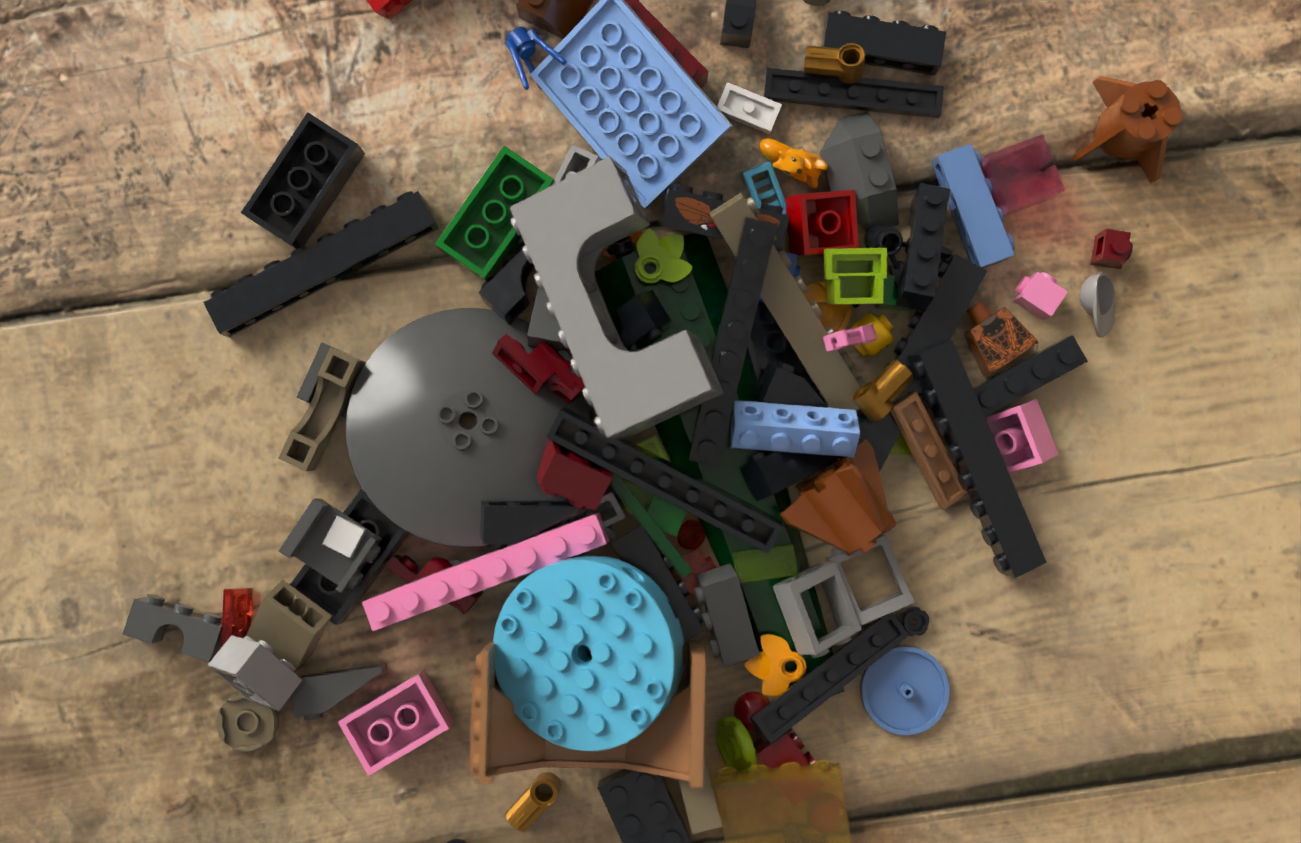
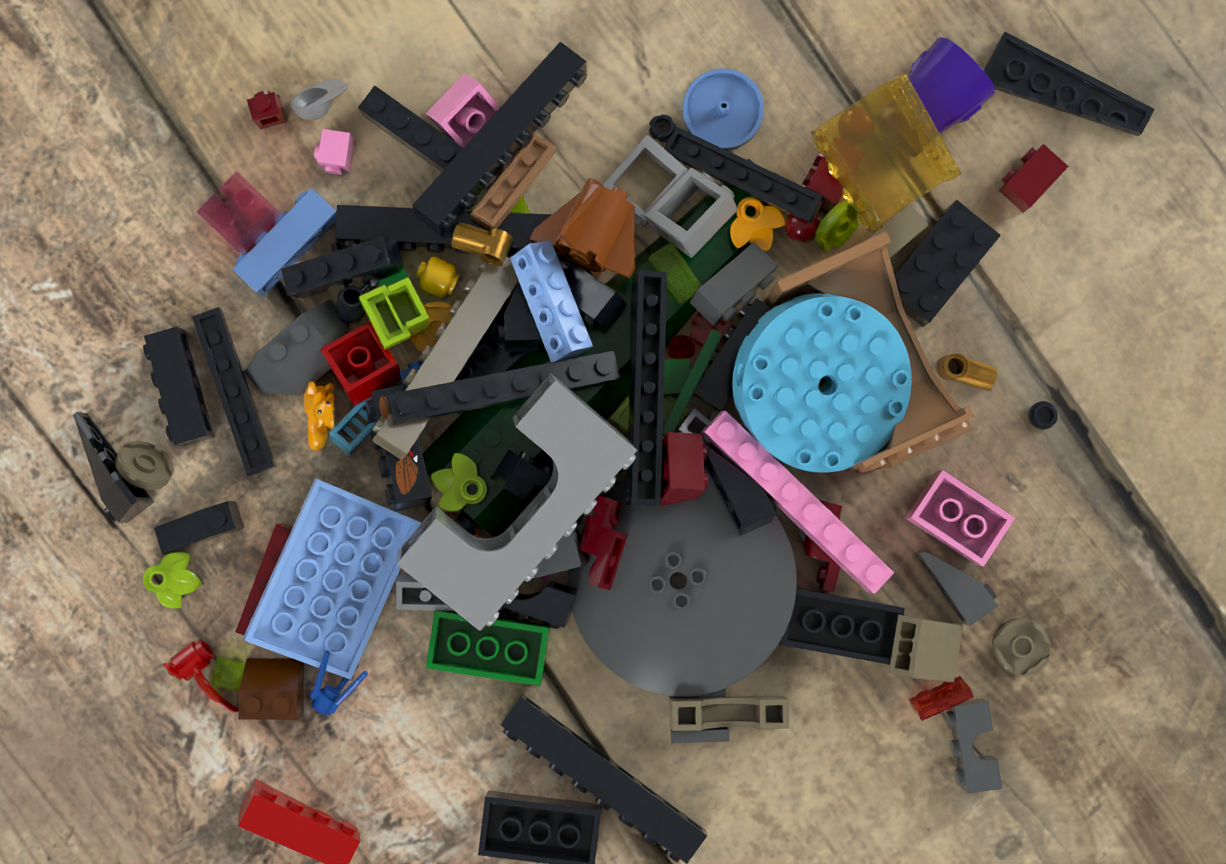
camera: 110 degrees left, 0 degrees up
(256, 671) = (976, 656): light grey brick -> none
(306, 545) = (838, 643): dark grey panel -> none
(344, 536) = (827, 636): white tile -> none
(748, 108) = (290, 475): white plate -> none
(835, 62) = (216, 421): pearl gold piece -> none
(849, 337) = (451, 291): bright pink piece -> none
(996, 338) = (390, 170): torso -> none
(1135, 122) = (148, 139): dark orange brick -> none

